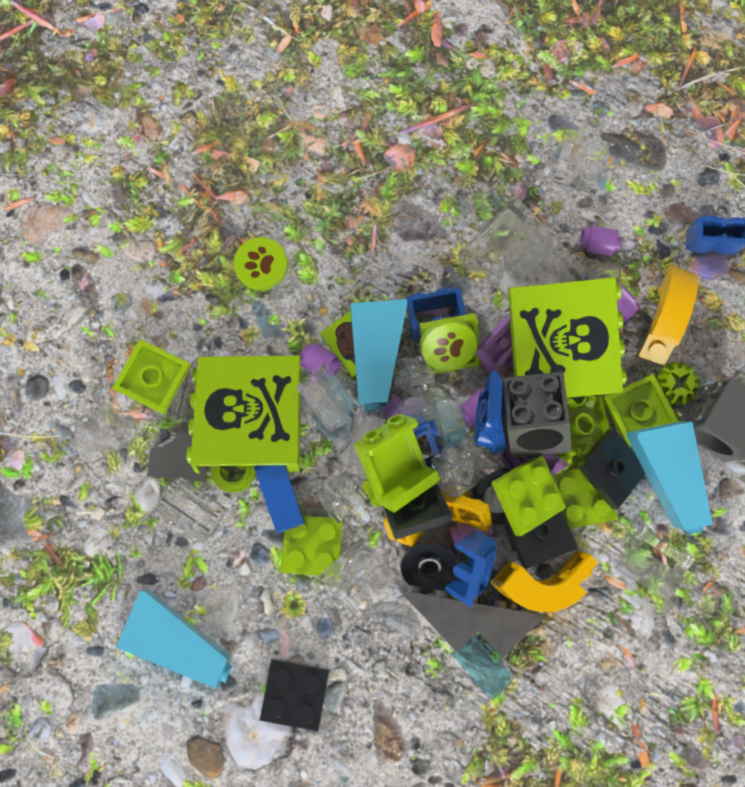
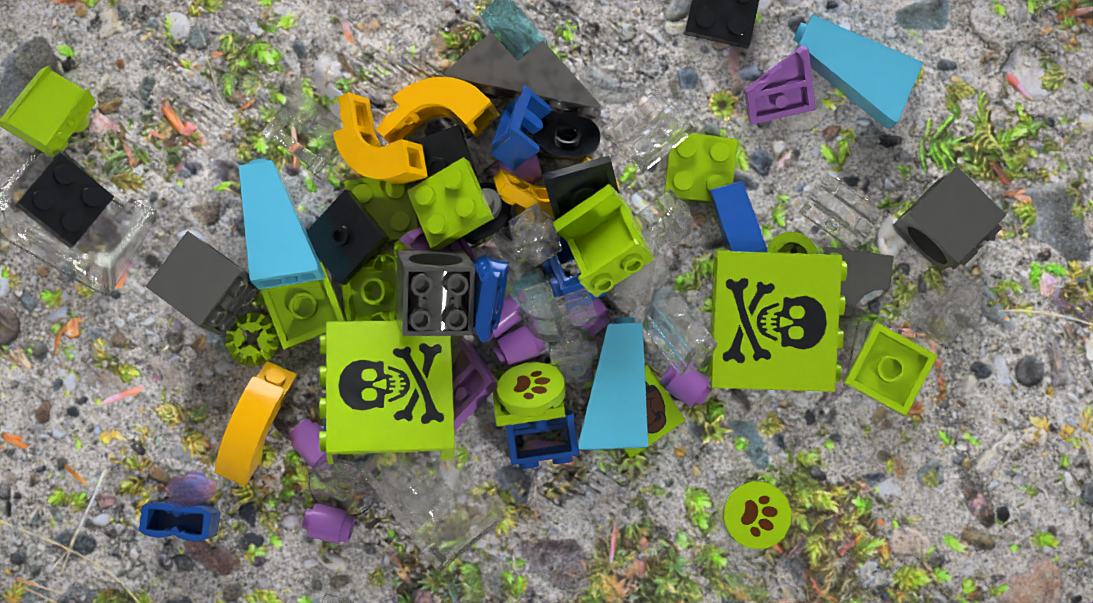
camera: 175 degrees left, 5 degrees up
(96, 504) = (950, 220): none -> dark grey brick
(241, 617) = (782, 90): none -> medium lavender wing
(461, 383) = (518, 347): none -> medium lavender brick
(605, 544) = (359, 147): none -> yellow arch

